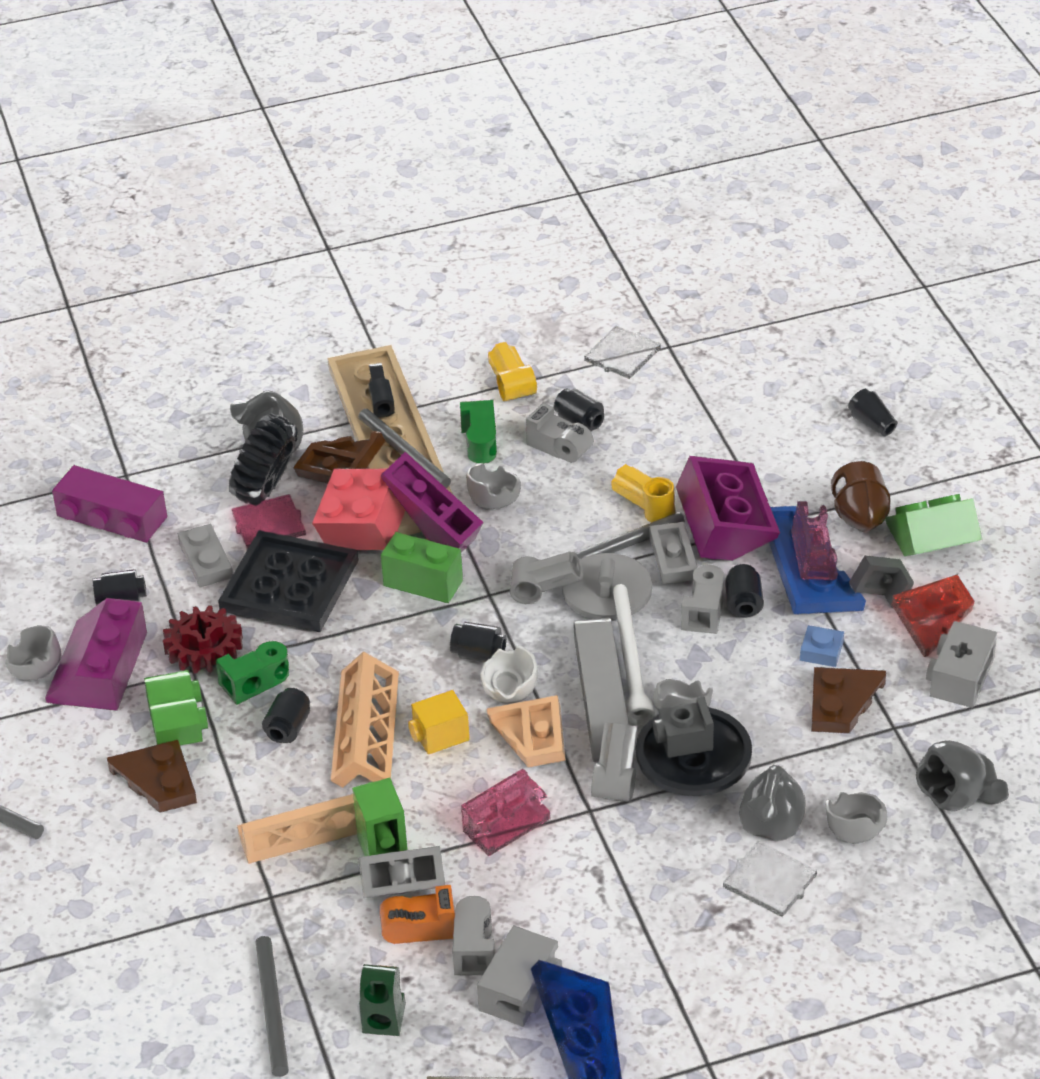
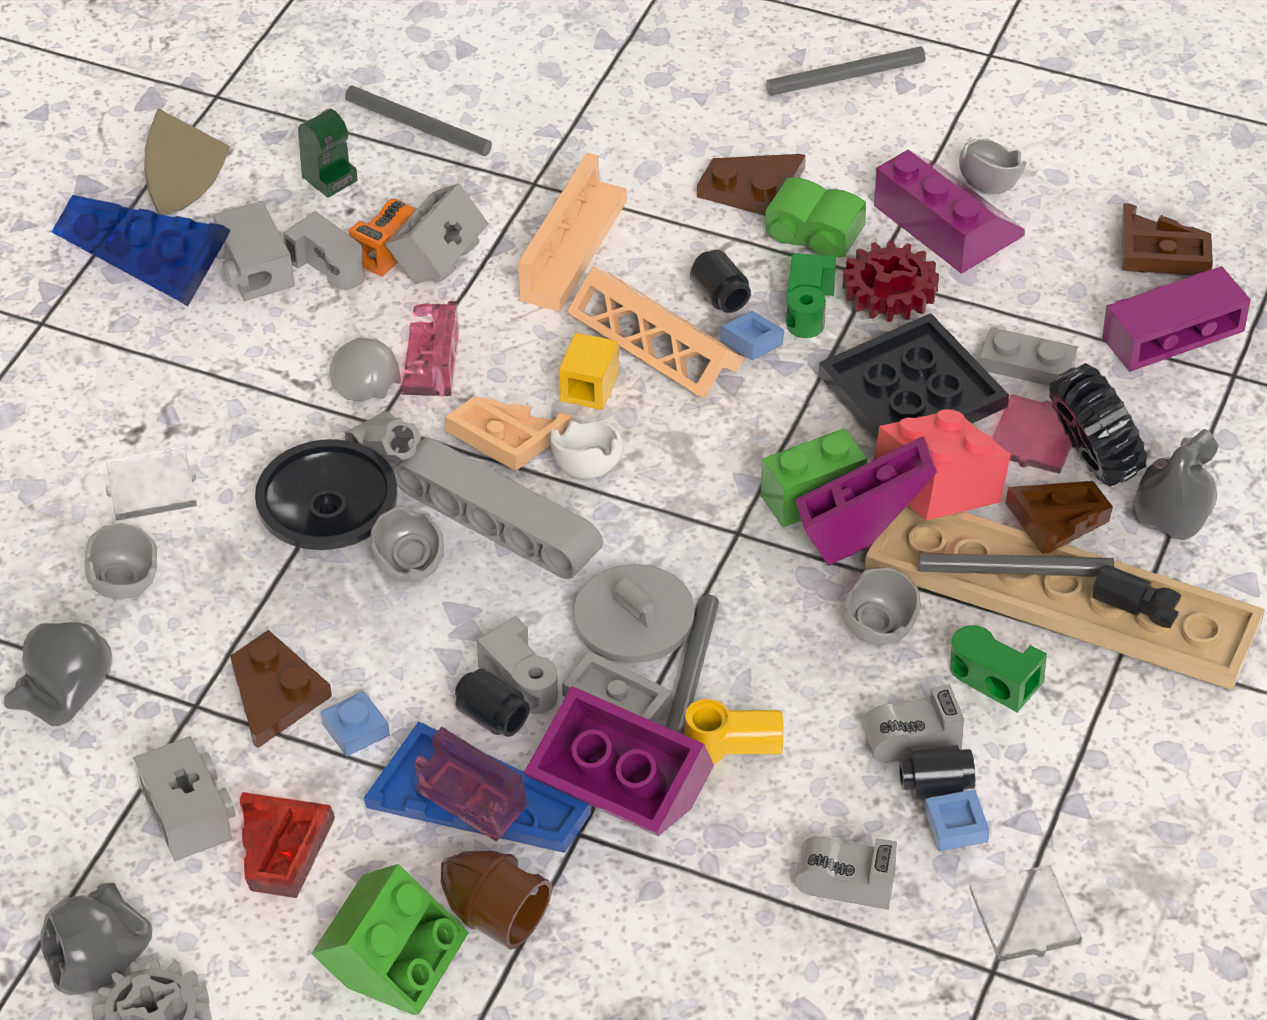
camera: 130 degrees right, 5 degrees up
(36, 549) = (1163, 245): none -> reddish brown wing
(119, 585) = (1029, 263): black brick -> none
(322, 672) = (752, 335): none -> medium blue plate
(379, 818) = (495, 239): bright green brick -> none
(476, 641) = (663, 459): black brick -> none
(512, 376) = (1060, 755): yellow piece -> none
(535, 576) = (697, 553): light grey piece -> none
(557, 837) = (364, 369): none -> light grey hair
(602, 389) = (957, 820): none -> medium blue plate
(638, 705) = (450, 523): white piece -> none
(677, 405) = (848, 871): none -> light grey leg
(685, 728) = (344, 468): dark grey brick -> none
(773, 805) = (205, 512): dark grey piece -> none
(881, 577) = (373, 819): dark grey bracket -> none

